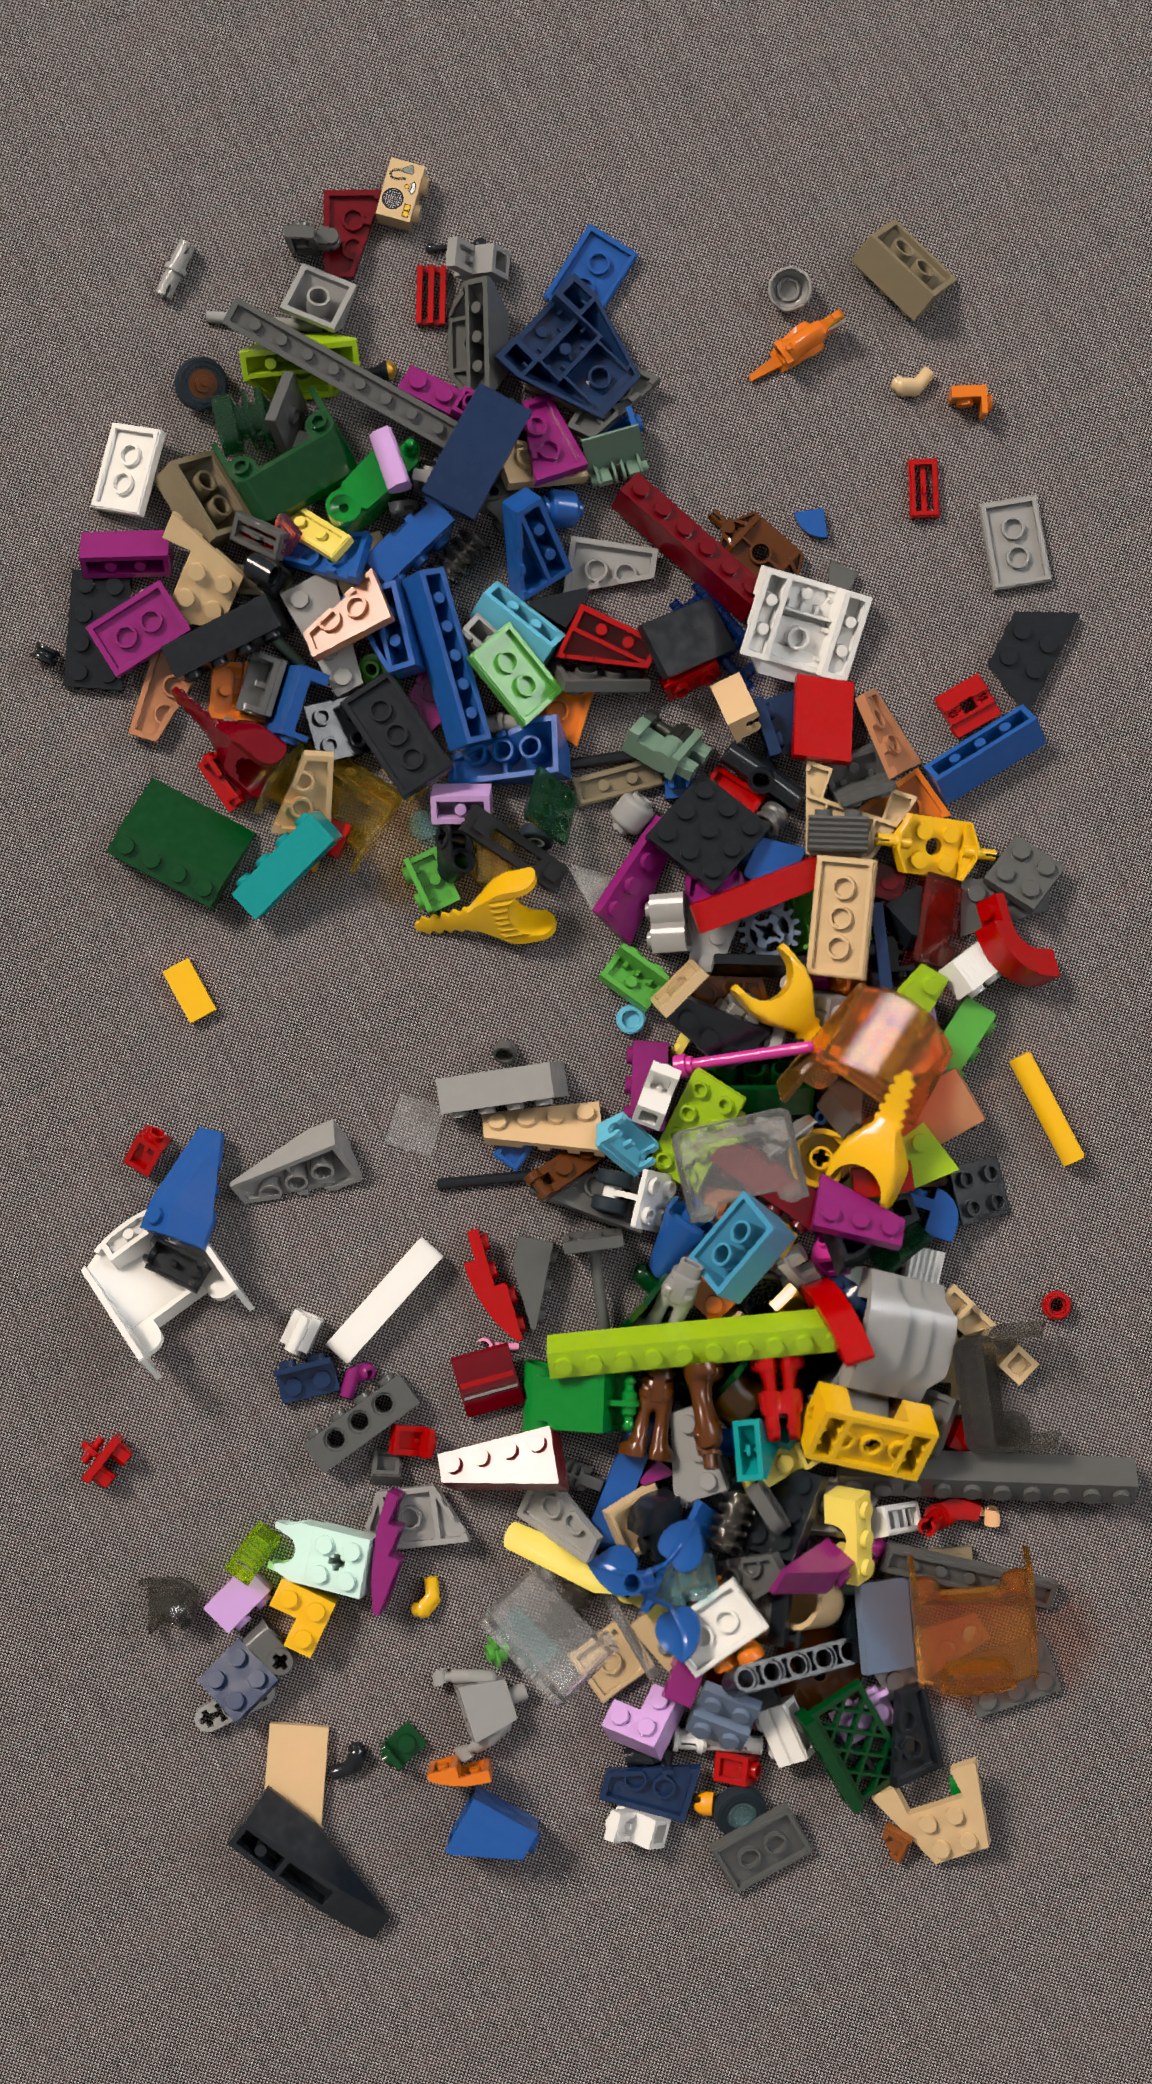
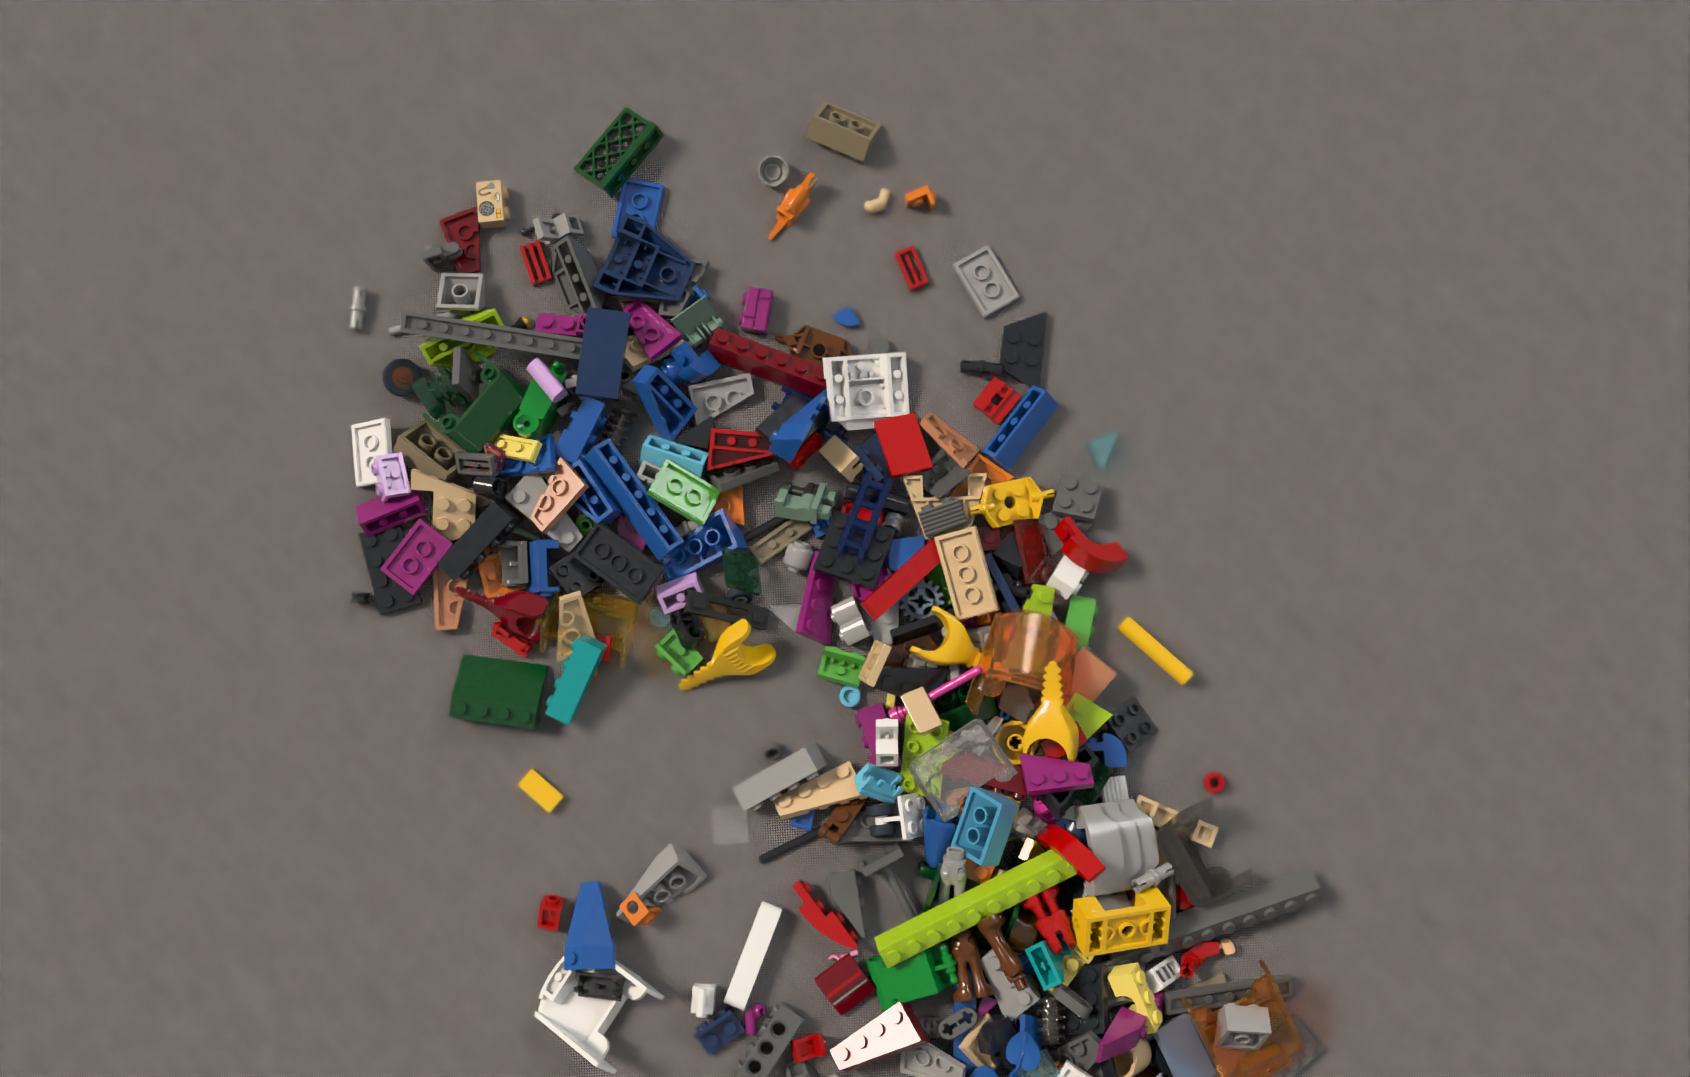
camera: 20 degrees left, 5 degrees down
(141, 510) = (390, 476): none -> lavender bracket
(265, 1197) = (643, 916): none -> orange bracket
(589, 513) = (694, 366): none -> blue brick
(605, 200) = (629, 158): none -> dark green fence
(611, 1473) = (955, 1017): none -> dark grey beam
(688, 648) = (794, 430): none -> blue wedge
(698, 470) = (756, 311): none -> magenta brick
(716, 1071) = (921, 711): none -> tan slope
(738, 773) = (852, 520): none -> clear blue bar
(902, 965) = (1019, 590): none -> black arm
(929, 1393) = (1152, 877): none -> light grey pin
(965, 656) = (982, 367): none -> black pin
(970, 1621) = (1242, 1027): none -> light grey slope
(1079, 820) = (1100, 448): none -> clear light blue slope

